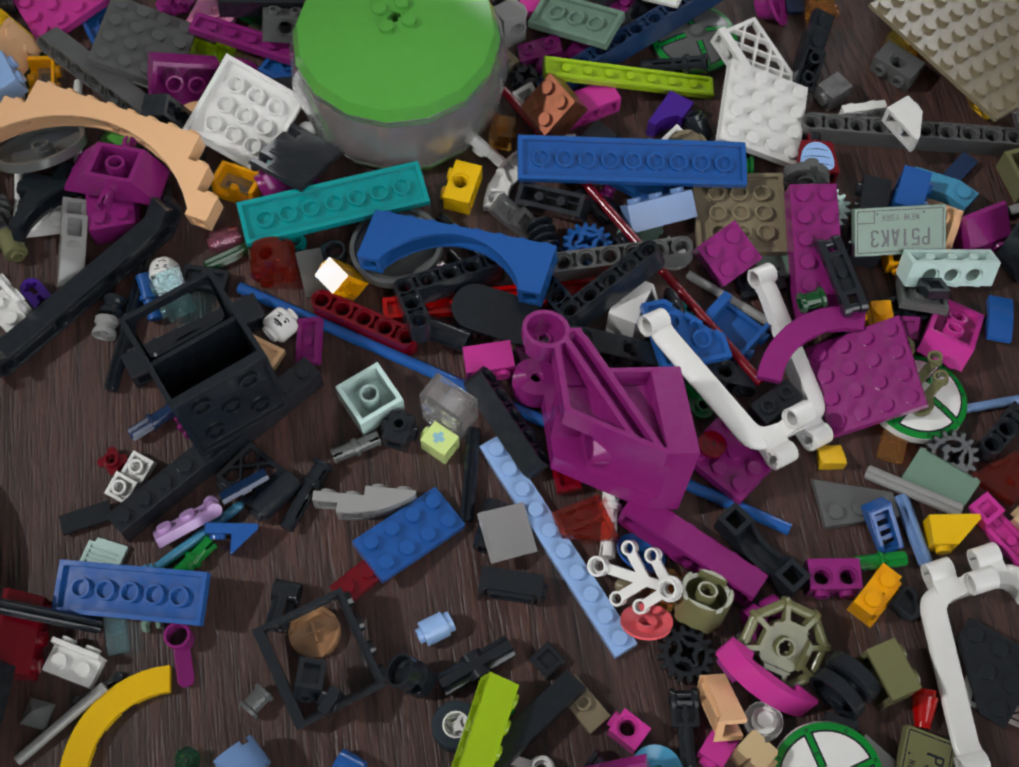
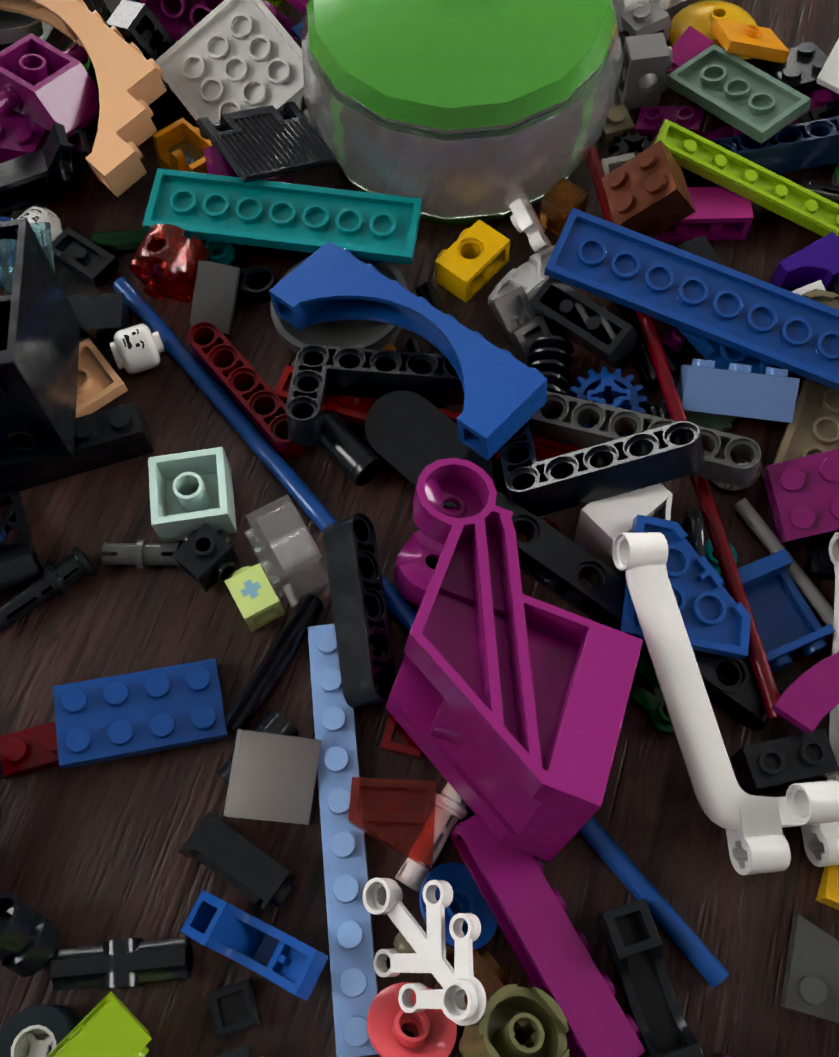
camera: 30 degrees right, 0 degrees up
(223, 239) = (127, 214): clear pink brick -> none
(309, 339) = (163, 384): magenta plate -> none
(341, 278) = (240, 317): light orange brick -> none
(375, 503) = (111, 642): light grey slope -> none
(435, 628) = (97, 874): light blue brick -> none
(494, 356) = (385, 504): dark pink brick -> none
(544, 622) = (255, 944): none -> blue arch
(712, 444) = (651, 782): dark red piece -> none
(735, 471) = (664, 823): magenta plate -> none

